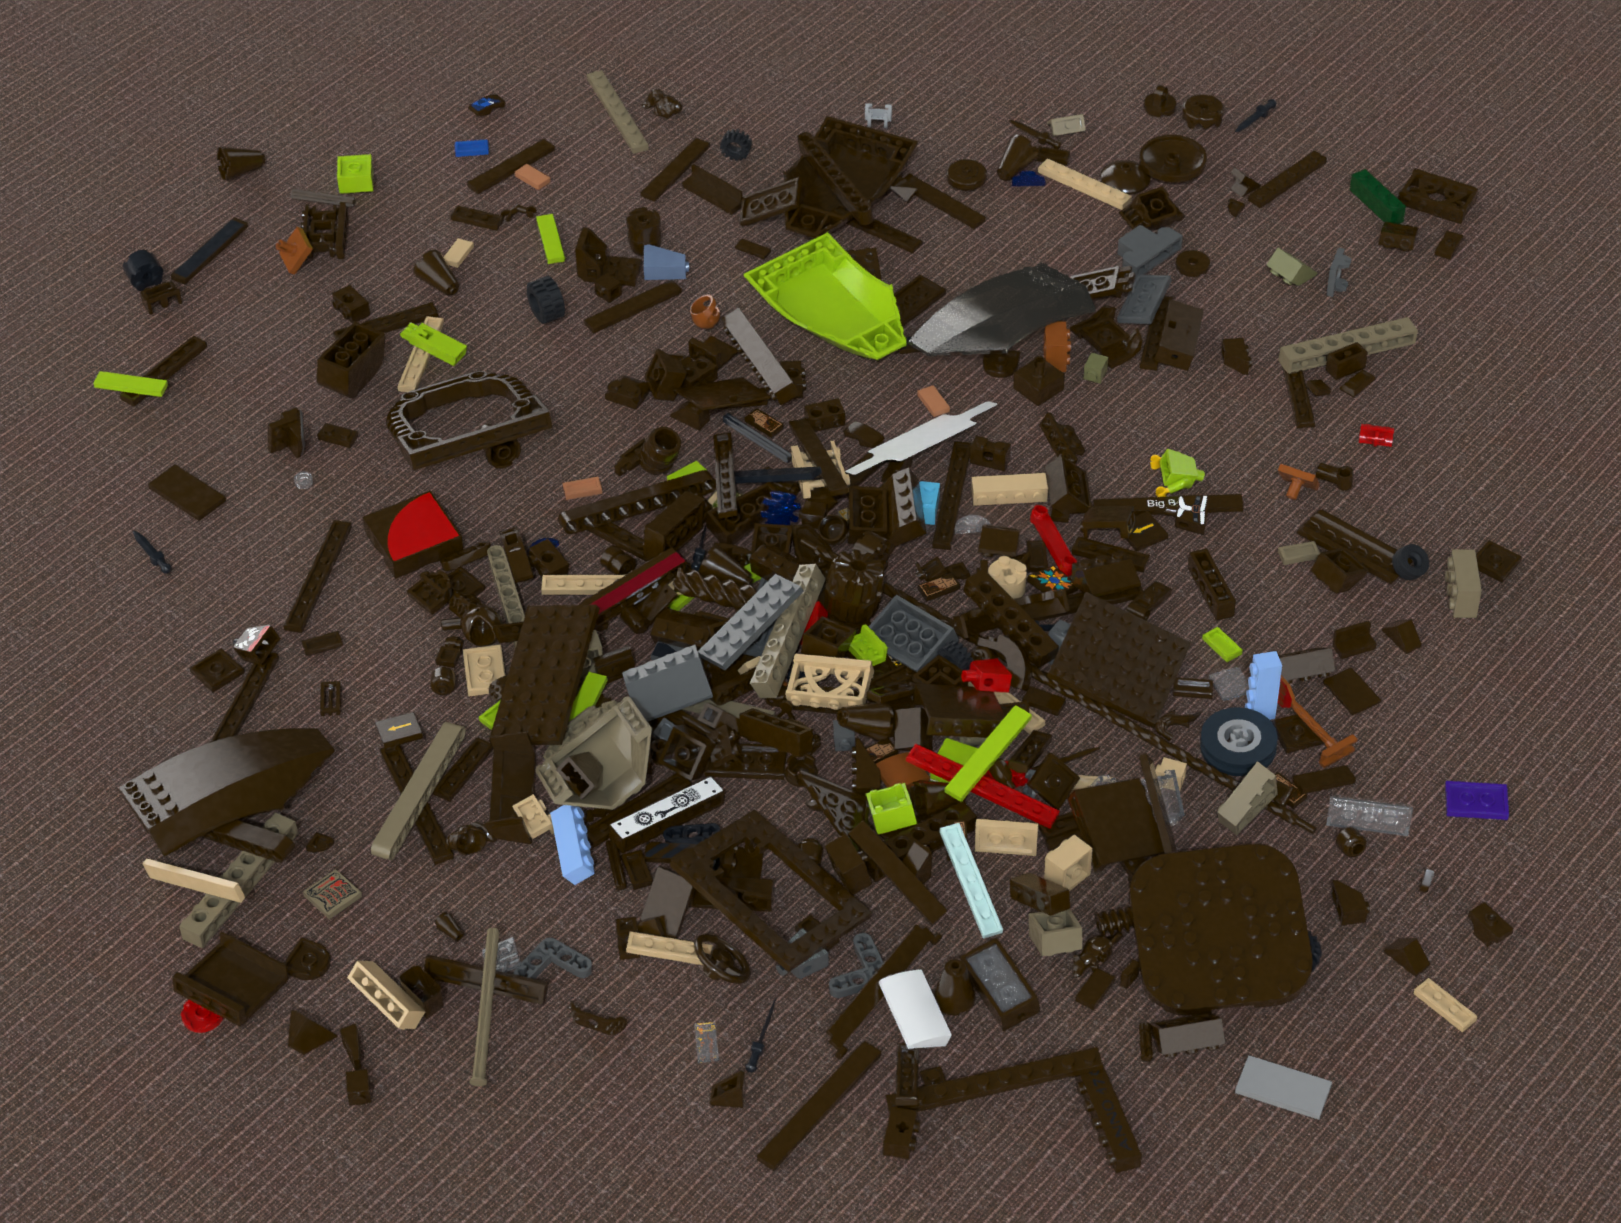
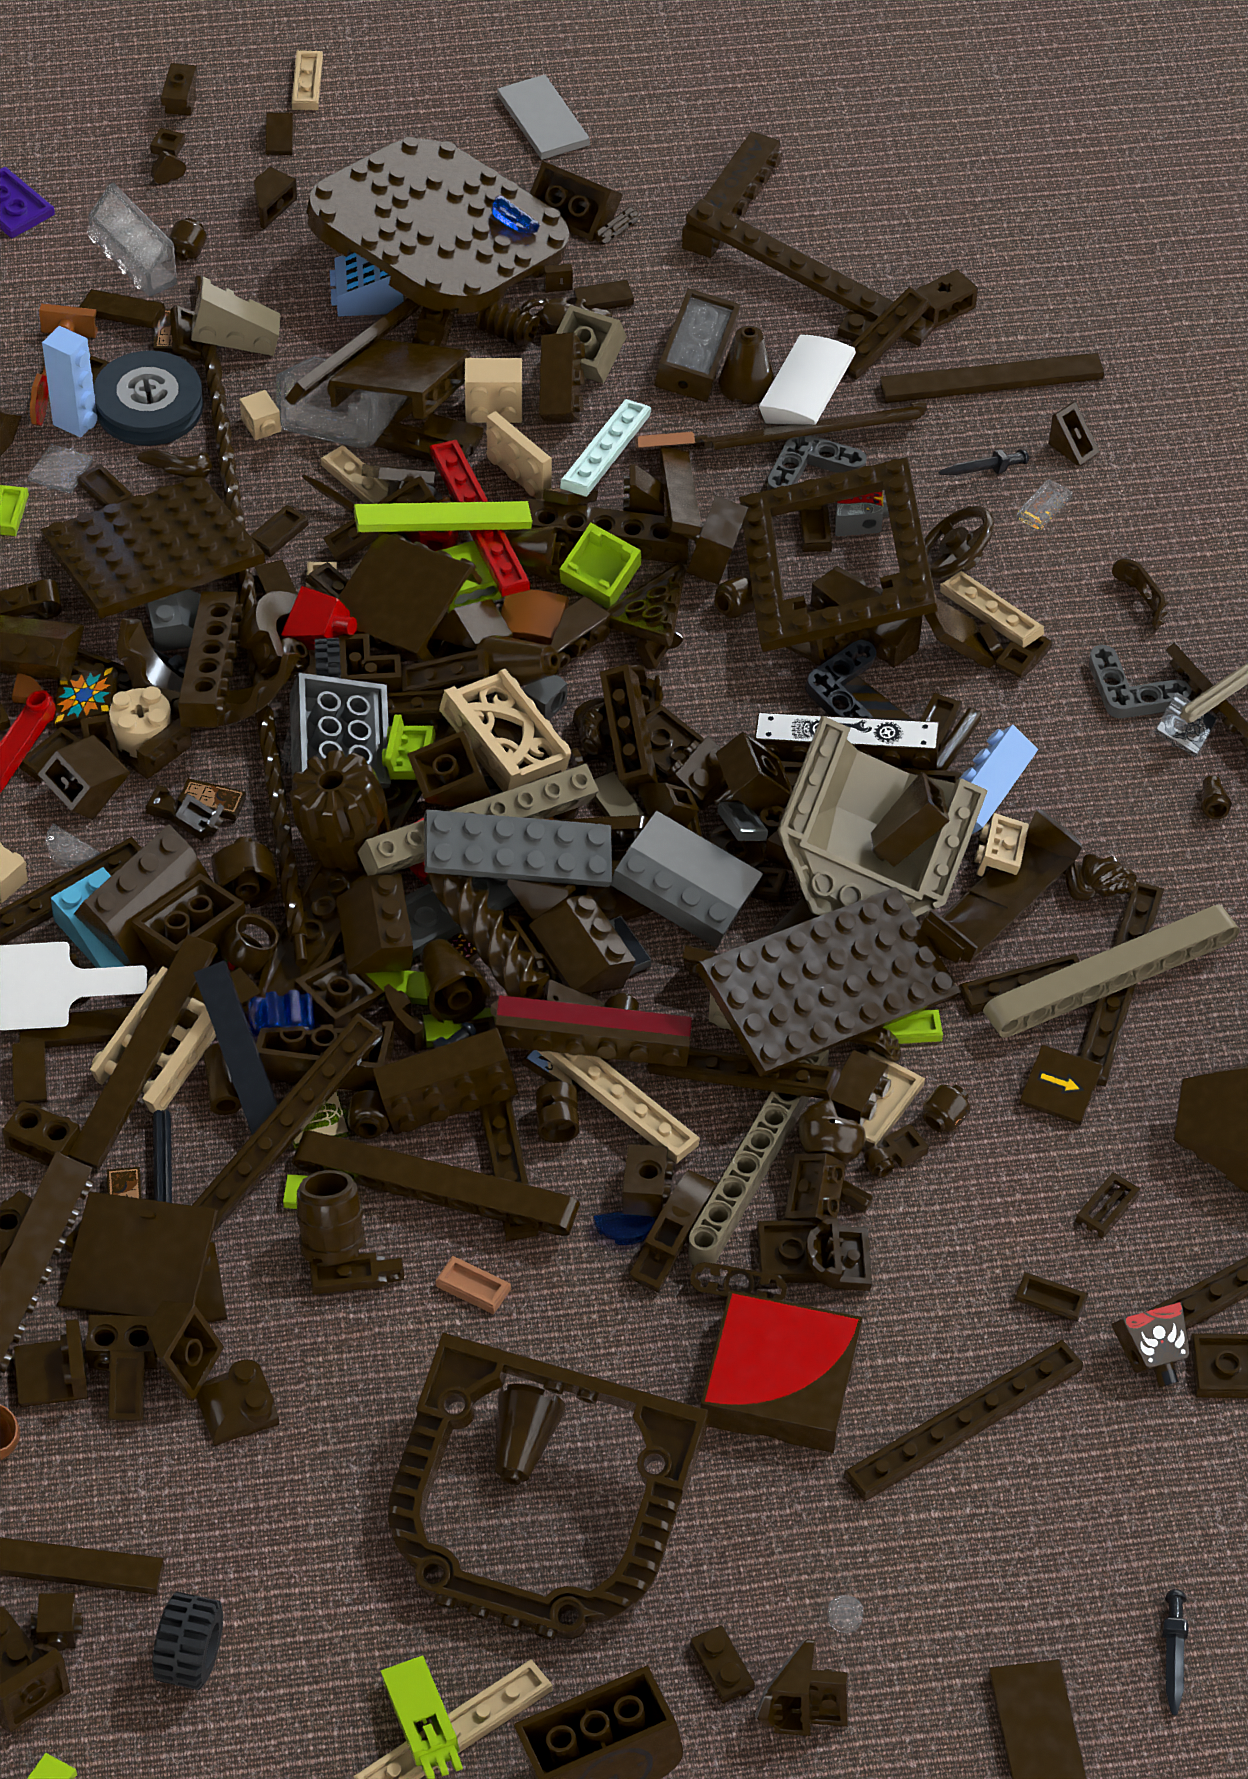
camera: 140 degrees left, 5 degrees up
(489, 654) = (859, 1087): none -> dark brown brick
(950, 916) = (659, 440): none -> nougat tile
(1082, 729) = (279, 530): none -> dark brown tile
(1186, 961) = (512, 216): none -> clear blue tile
(1445, 888) = (167, 141): none -> dark brown tile

